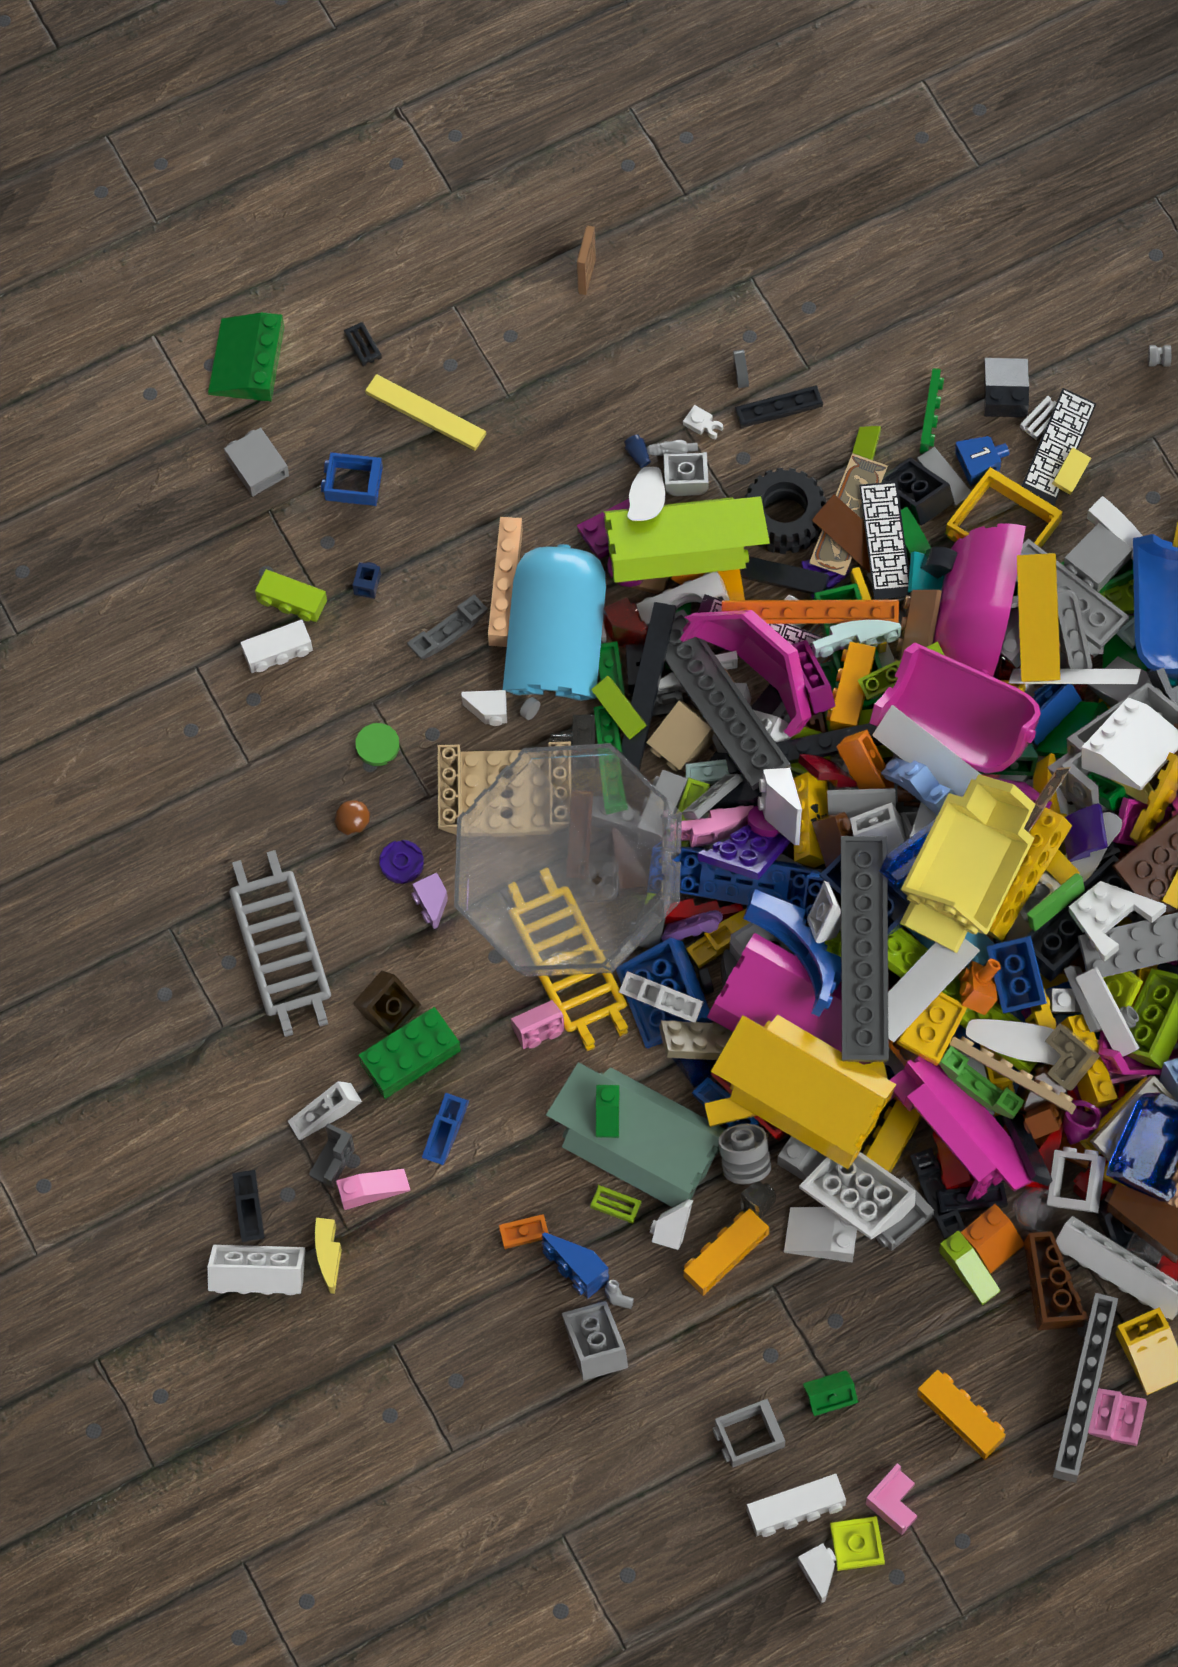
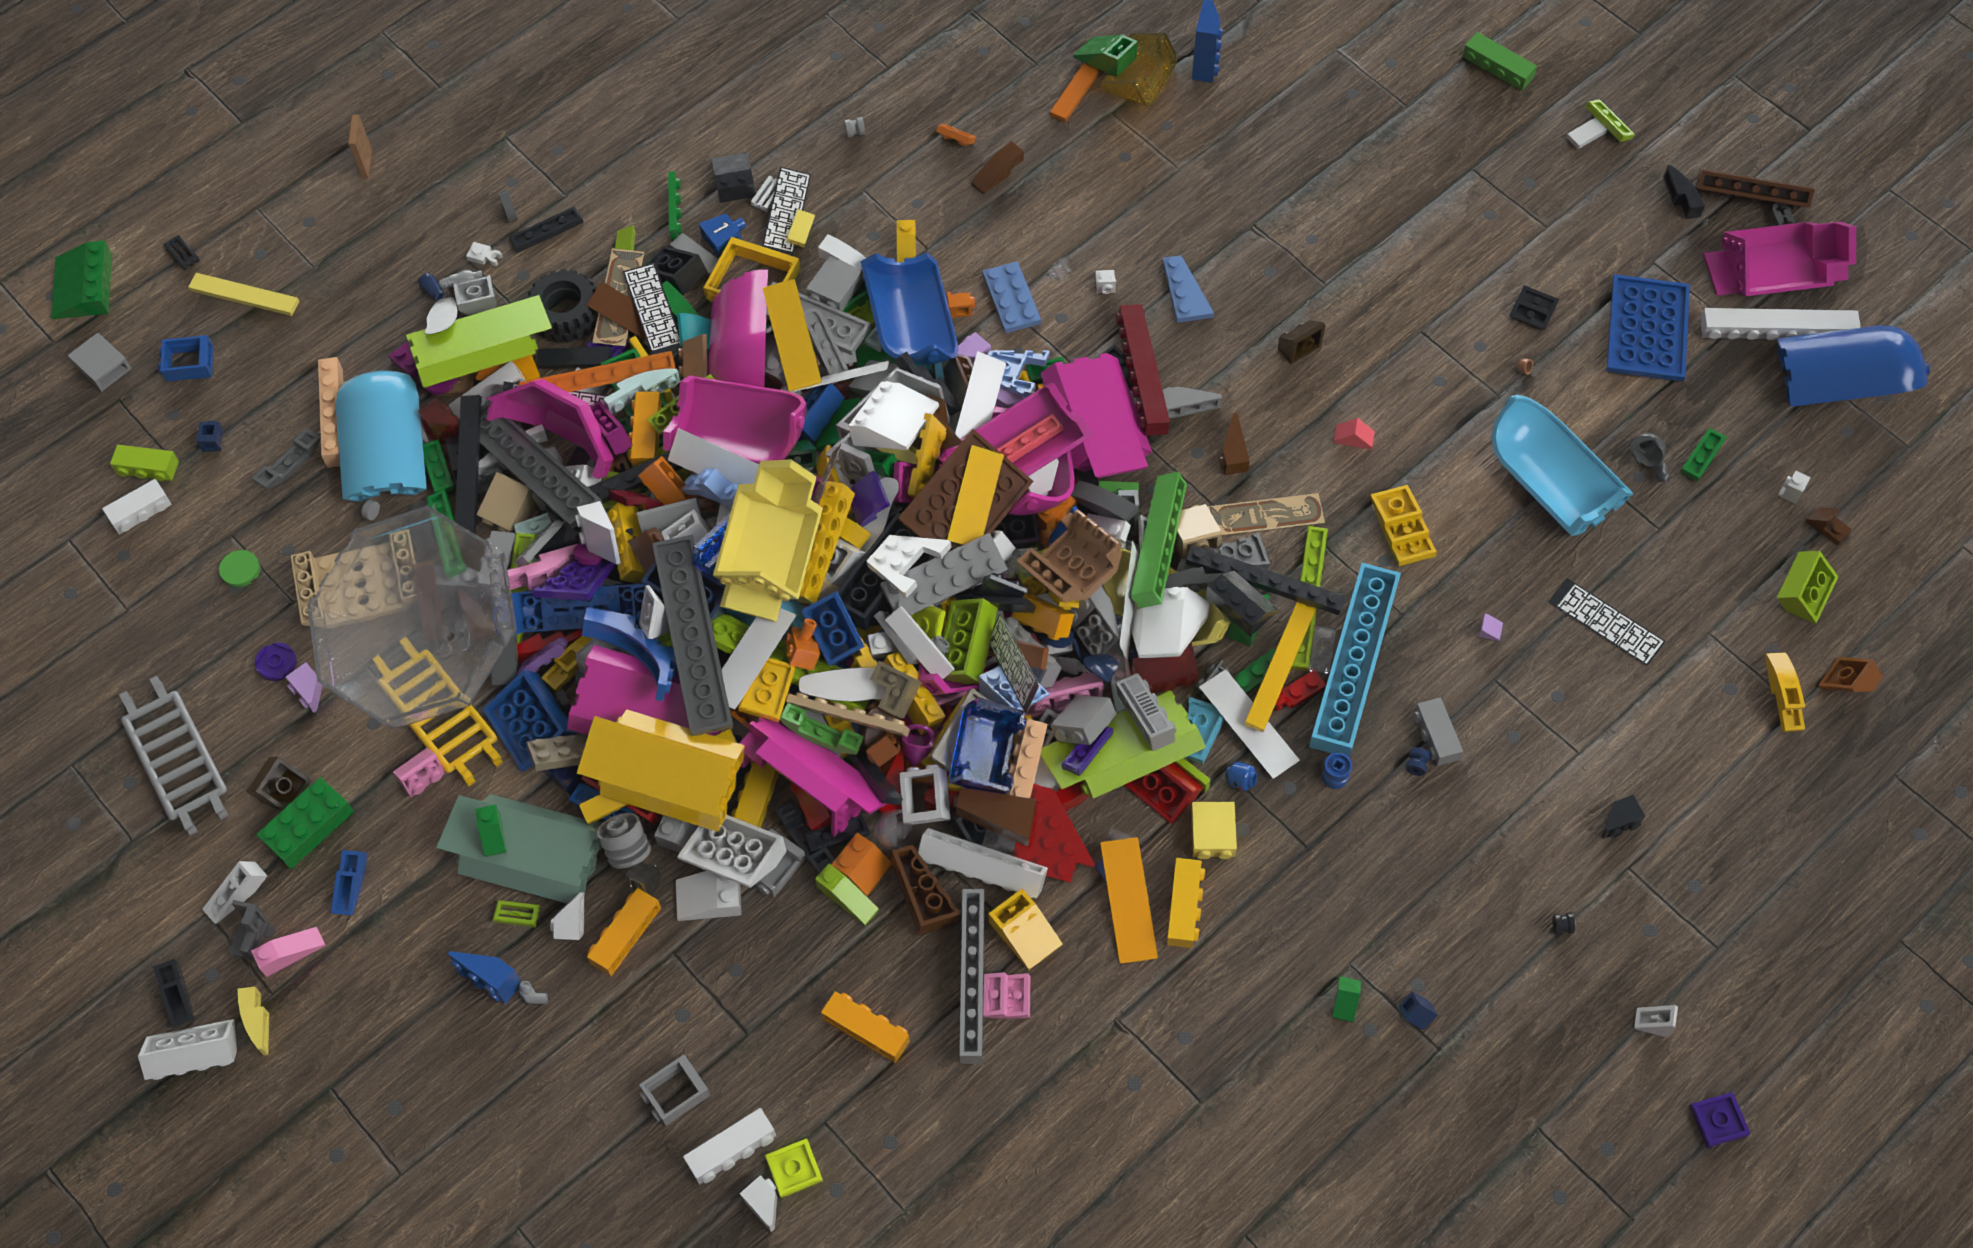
camera: 15 degrees left, 5 degrees down
(352, 817) = (225, 633): dark orange hair -> none
(487, 705) = (332, 515): white slope -> none
(523, 1231) = (433, 957): orange plate -> none
(595, 1340) = (517, 1040): light grey slope -> none
(618, 707) = (446, 490): lime tile -> none
(661, 997) = (524, 722): white slope -> none
(831, 1393) = (743, 1036): green panel -> none
(887, 1497) = (812, 1119): bright pink panel -> none
(939, 561) = (701, 316): black brick -> none
(1055, 902) = (854, 560): bright green tile -> none

